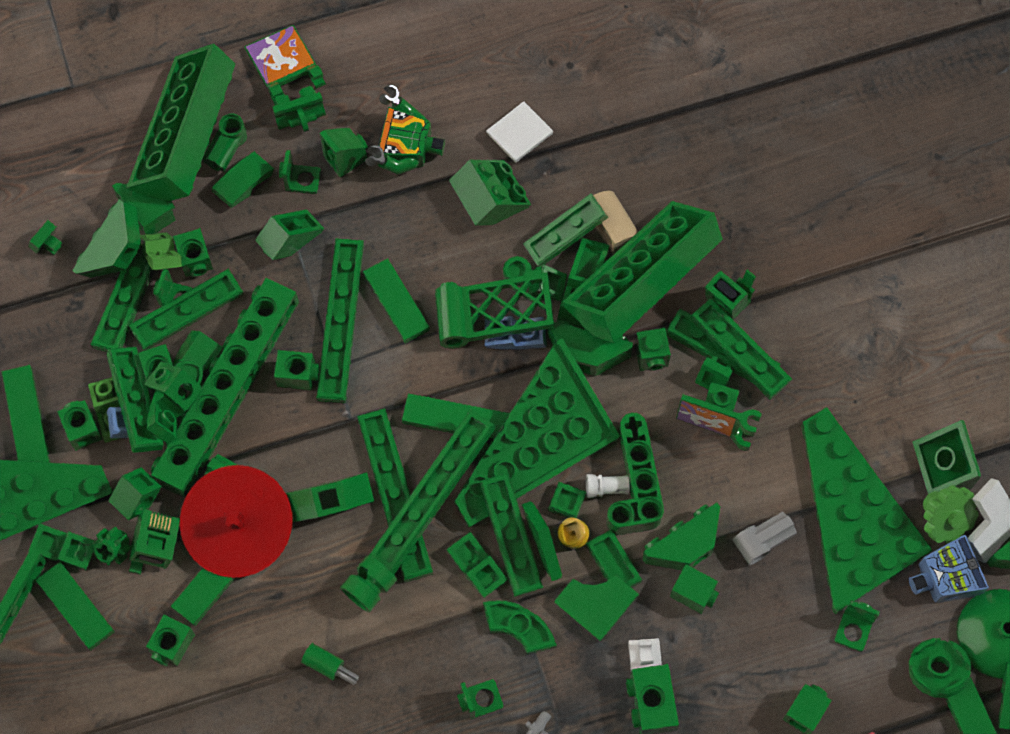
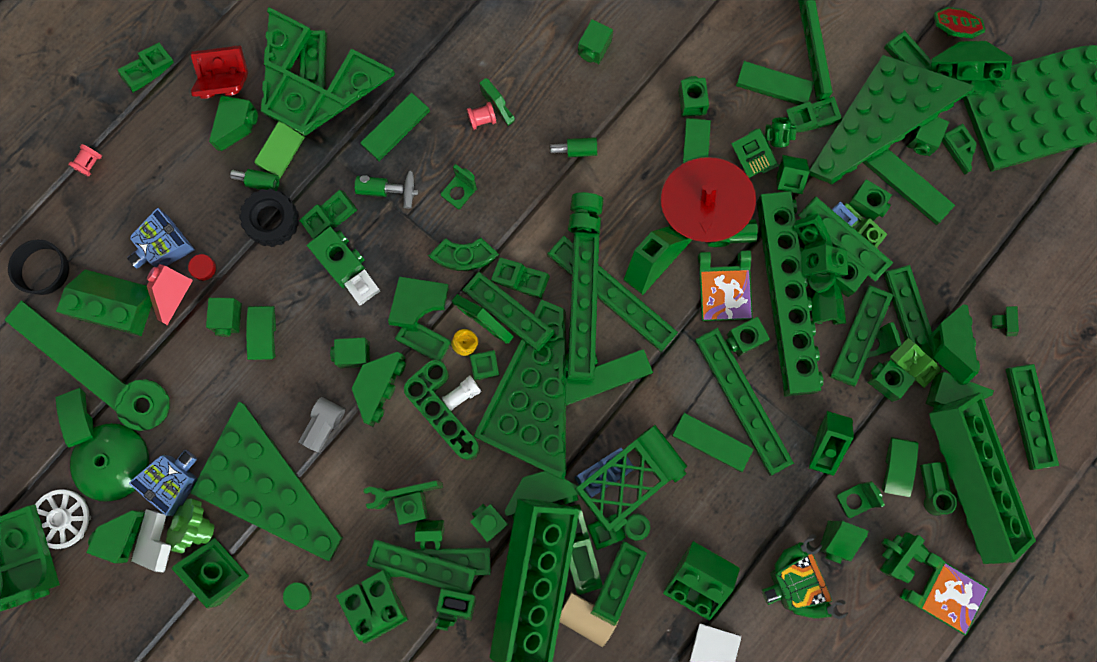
camera: 150 degrees right, 10 degrees up
(91, 153) = (1032, 417): none -> green tile
(281, 429) = (725, 290): none -> flag
(777, 670) = (260, 332): none -> green slope
(810, 326) = (372, 607): none -> green hips
(860, 615) = (220, 409): green bracket -> none
(873, 396) = (297, 595): none -> green tile

